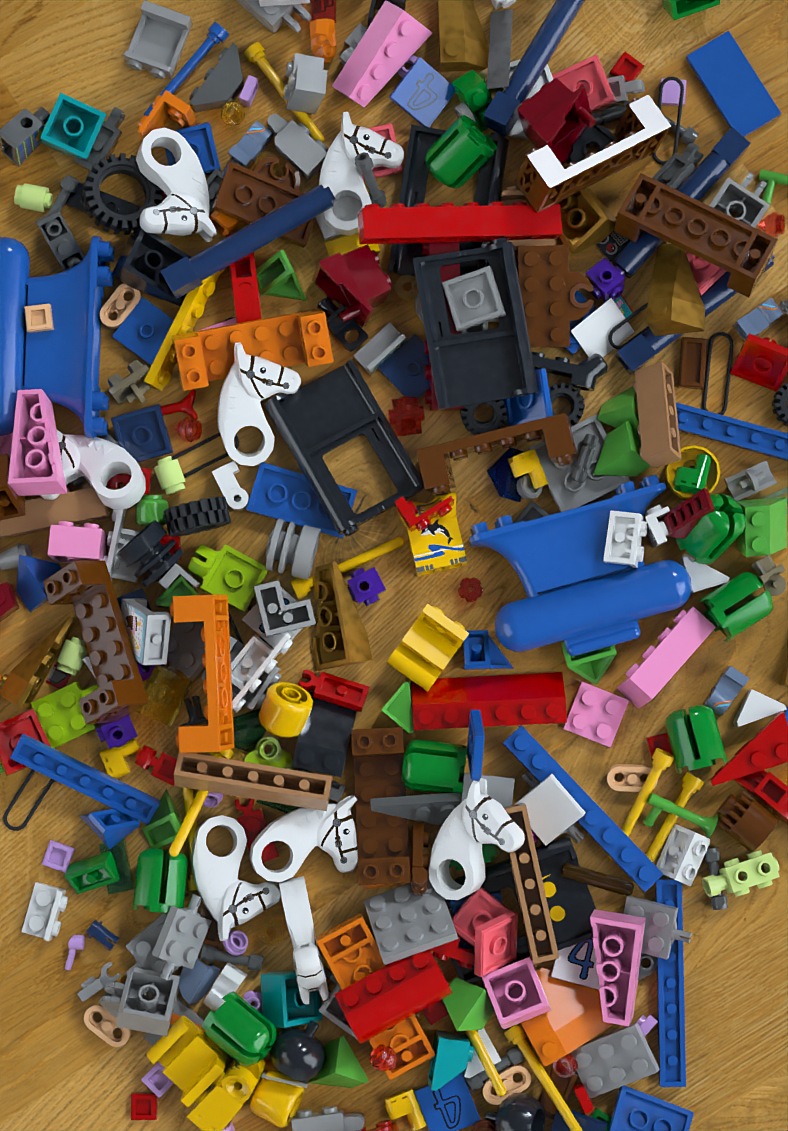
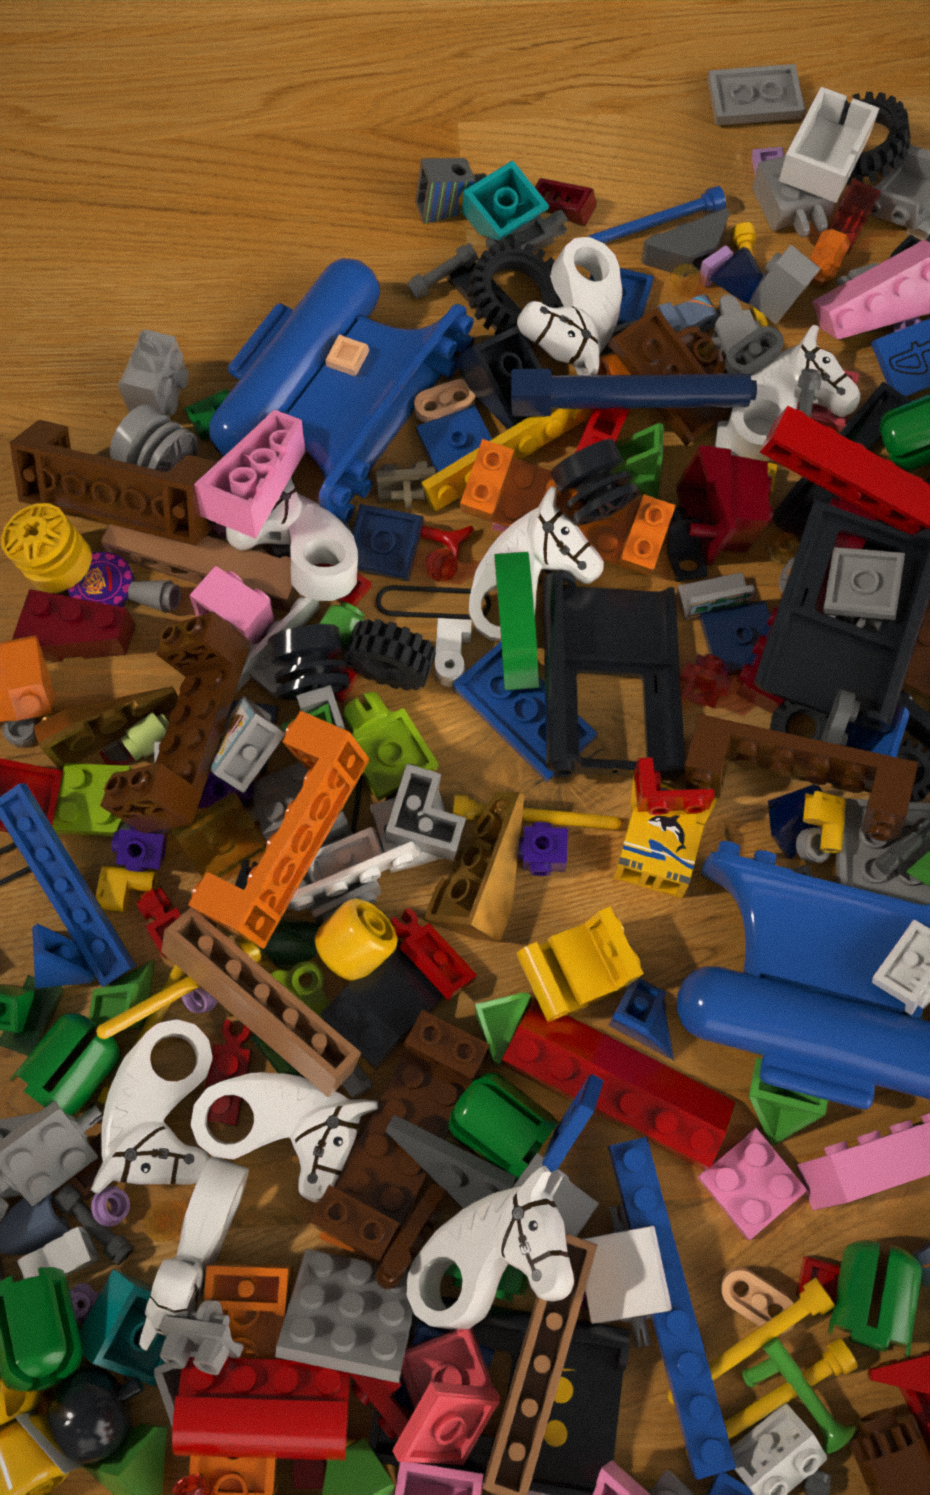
camera: 30 degrees right, 15 degrees down
(30, 580) = (160, 614): blue slope -> none
(33, 197) = (419, 252): yellowish green brick -> none
(60, 239) = (422, 291): dark grey slope -> none
(128, 86) = (582, 200): none -> dark red slope
(158, 40) = (647, 176): light grey panel -> none
(163, 108) = (619, 232): orange bracket -> none
(170, 475) = (387, 598): yellowish green brick -> none
(264, 328) = (592, 477): none -> black wheel
(264, 446) = (516, 621): none -> green slope
(270, 95) = (739, 275): none -> clear blue slope
(292, 549) = (475, 749): light grey wheel -> none
(314, 158) = (751, 353): none -> dark grey plate
(338, 975) = (204, 1333): none -> light grey hips
(477, 589) = (668, 937): clear red plate -> none
(503, 398) = (842, 711): none -> dark grey plate
(597, 879) = (637, 1418): dark brown axle -> none

